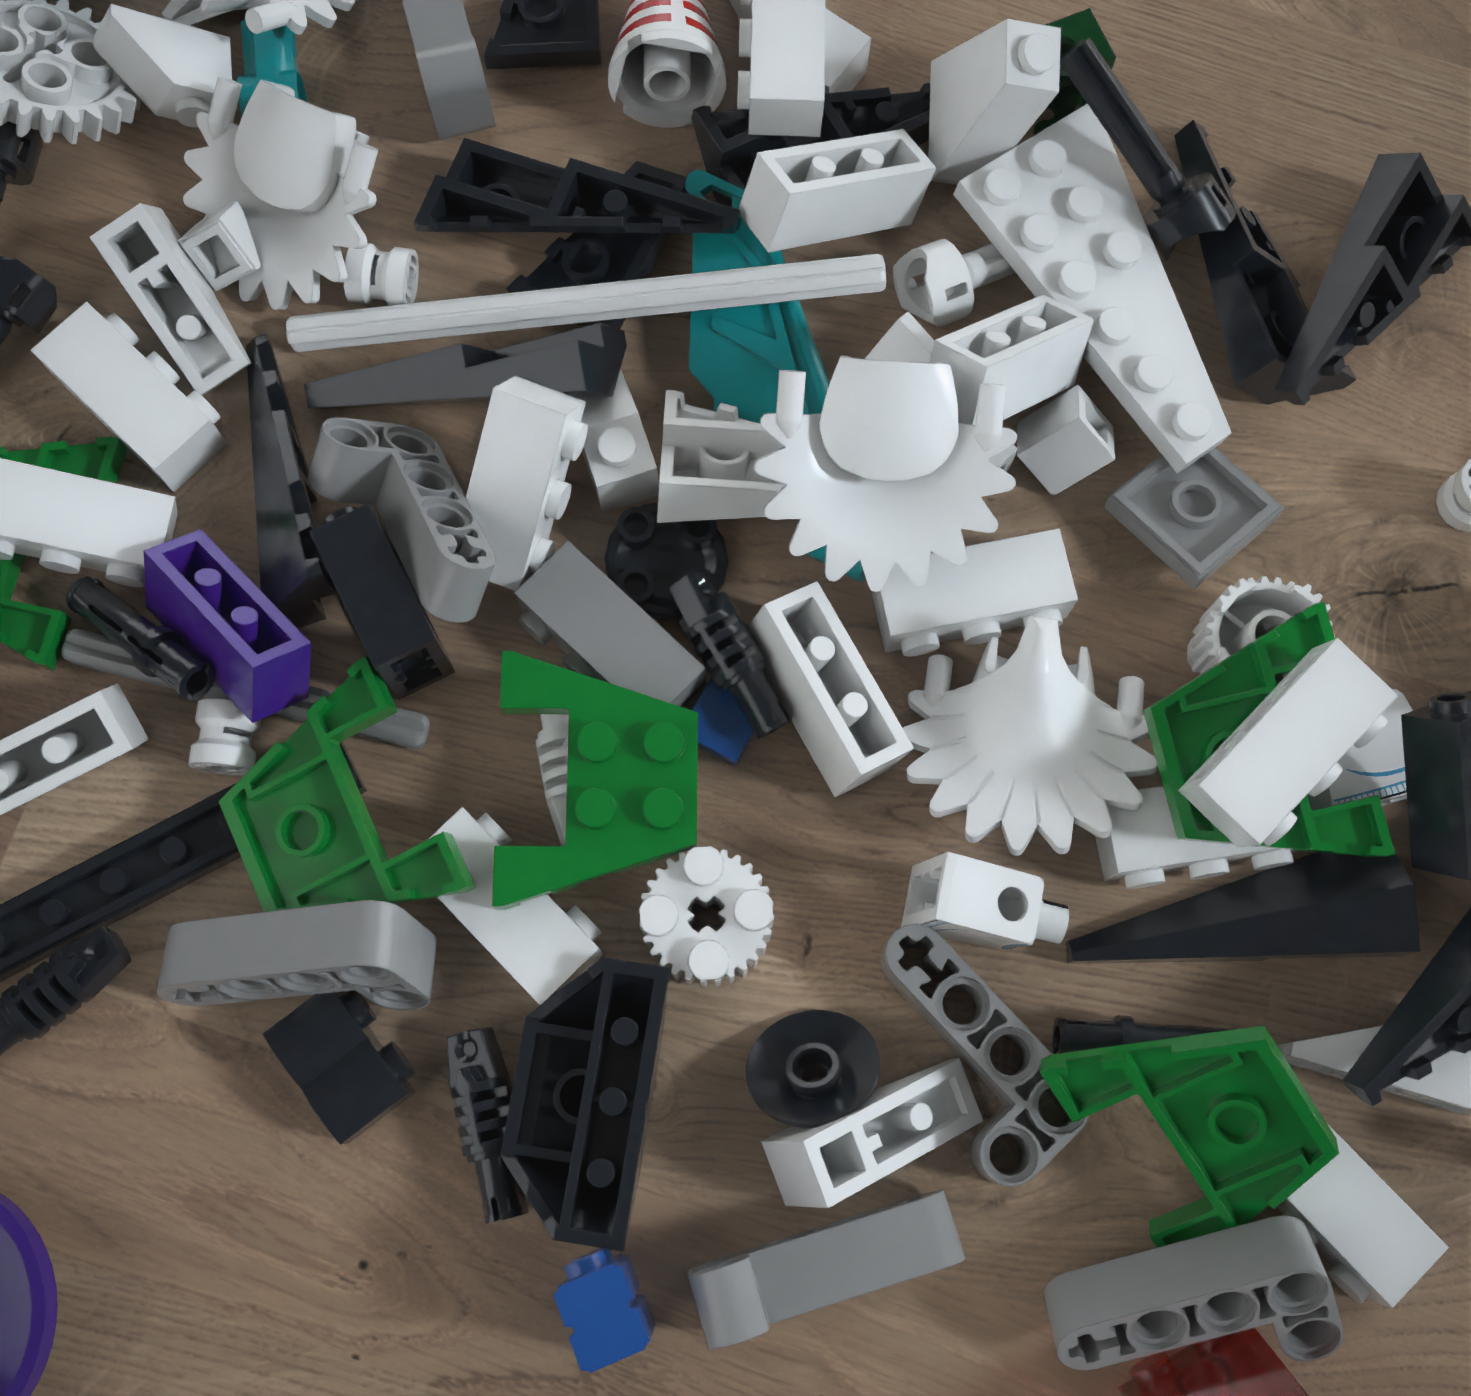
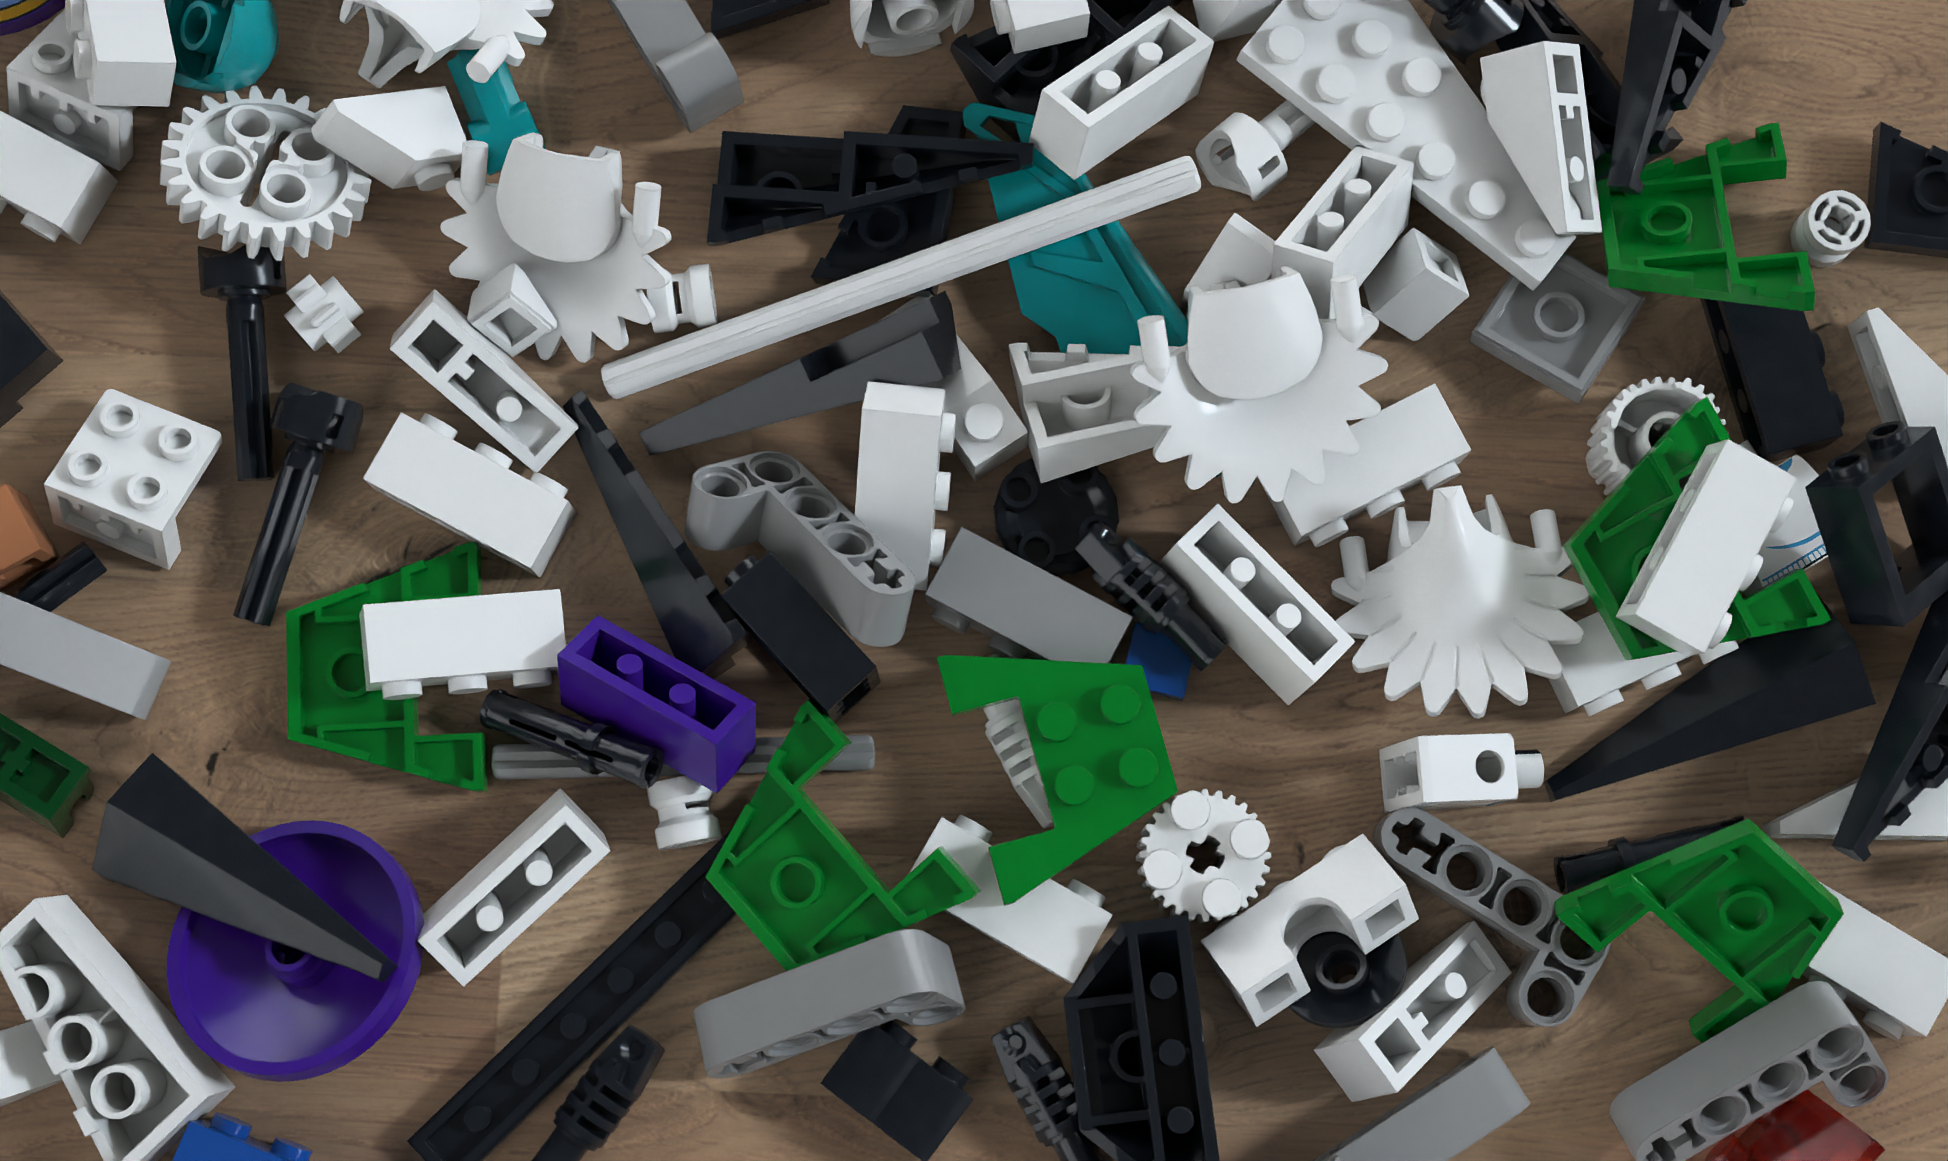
camera: 15 degrees left, 5 degrees up
(55, 204) = (323, 313): none -> white gear
(832, 992) = (1343, 893): none -> white arch
(1227, 315) = (1542, 121): none -> white slope
(1337, 457) = (1681, 236): none -> green wing
(1394, 592) = (1775, 378): none -> black brick

